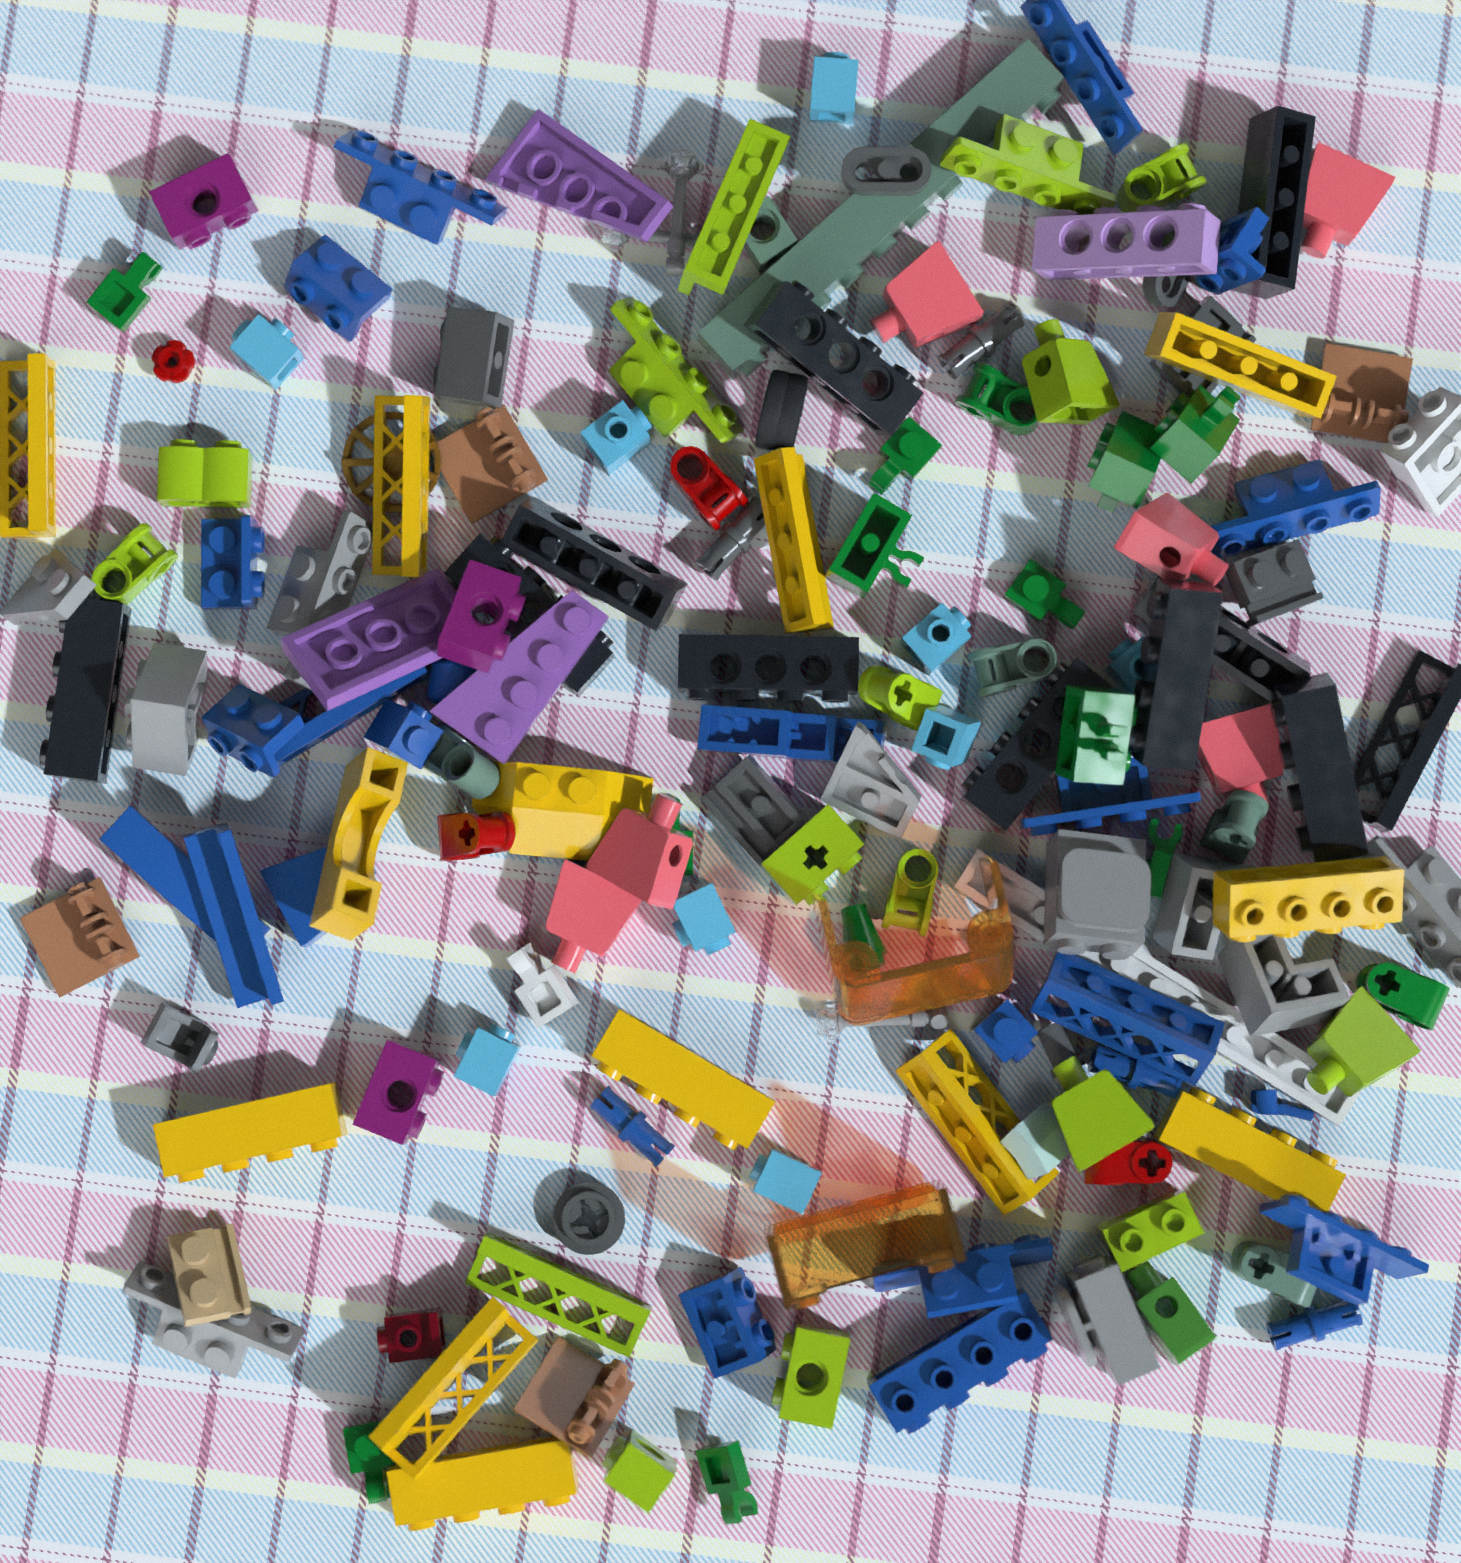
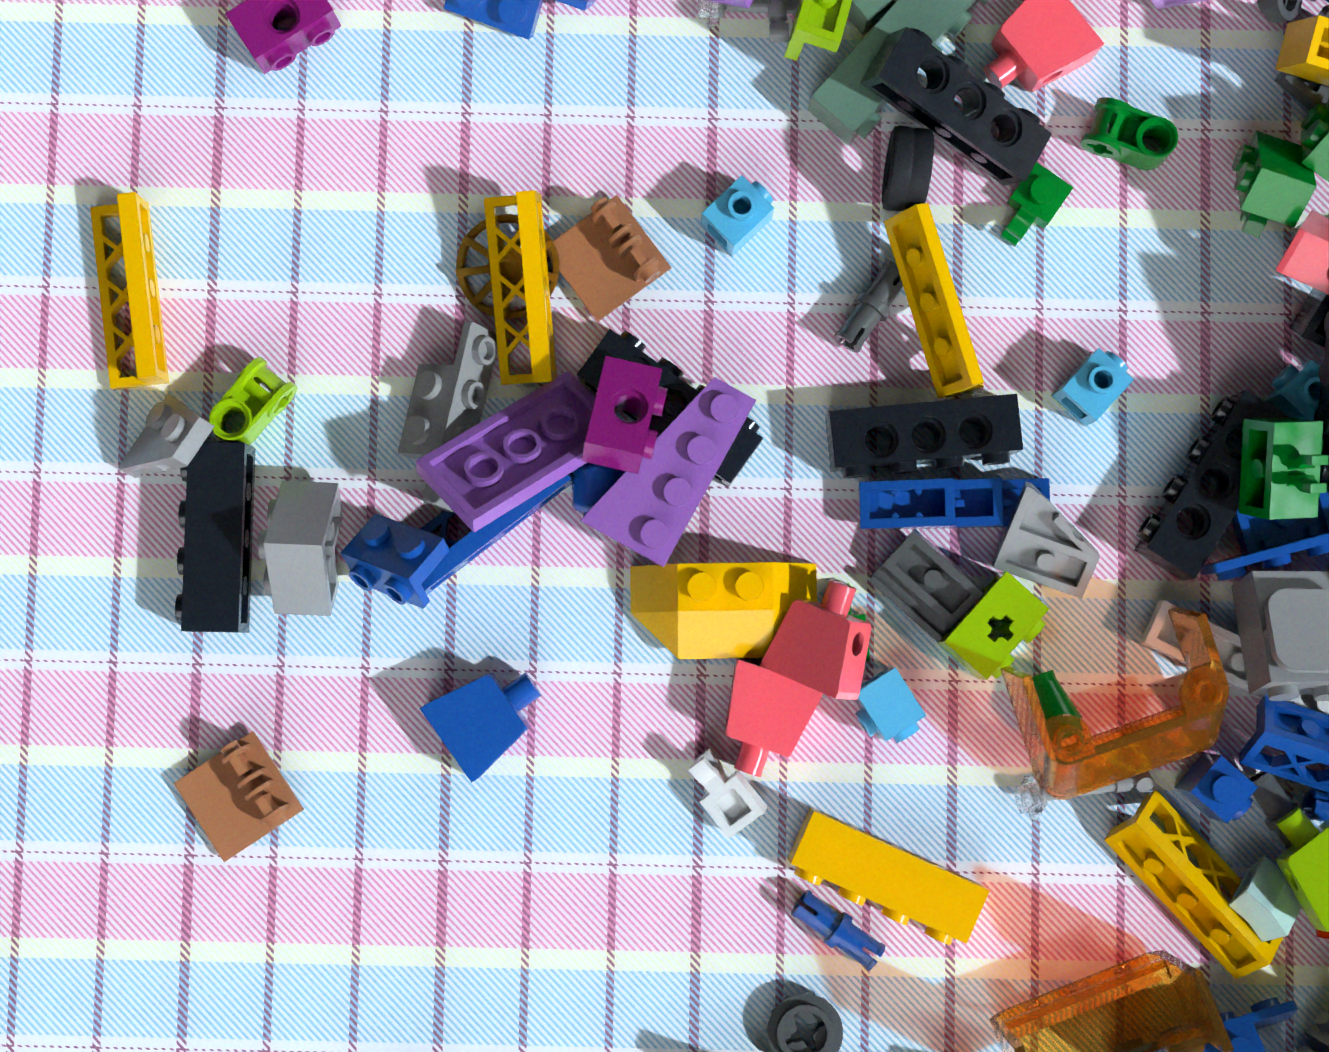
camera: 10 degrees left, 0 degrees up
(121, 296) = (209, 126): green plate -> none
(160, 865) = (342, 728): blue slope -> none
(181, 1038) = (356, 891): dark grey bracket -> none
(183, 367) = (270, 200): red plate -> none
(204, 476) = (315, 301): lime brick -> none
(230, 563) = (353, 389): blue bracket -> none
(232, 915) = (396, 757): blue fence -> none
(250, 1130) = (440, 981): yellow brick -> none
(266, 349) = (365, 164): medium azure brick -> none
(336, 287) = (429, 93): blue bracket -> none
(347, 885) = (516, 720): yellow arch -> none
(378, 1111) = (576, 949): magenta brick -> none
(404, 732) = (554, 545): blue brick -> none
(462, 765) = (616, 571): sand green piece -> none
(472, 835) = (640, 643): red piece -> none
(473, 357) = (581, 148): dark grey brick -> none
(486, 1058) = (679, 877): medium azure brick -> none
(593, 563) = (730, 347): black brick -> none
(663, 380) = (777, 153): lime bracket -> none
(707, 488) = (837, 258): red piece -> none
(784, 1180) = (1008, 971): medium azure brick -> none
(869, 547) = (1015, 300): green brick -> none
(898, 695) = (1067, 452): lime piece -> none
(911, 895) = (1098, 655): lime piece -> none
(945, 737) = (1118, 488): medium azure brick -> none
(981, 341) = (1100, 76): dark grey pin -> none
(1009, 666) = (1169, 407): sand green piece -> none
(1039, 592) = (1191, 328): green plate -> none
(1066, 378) = (1197, 102): lime torso -> none

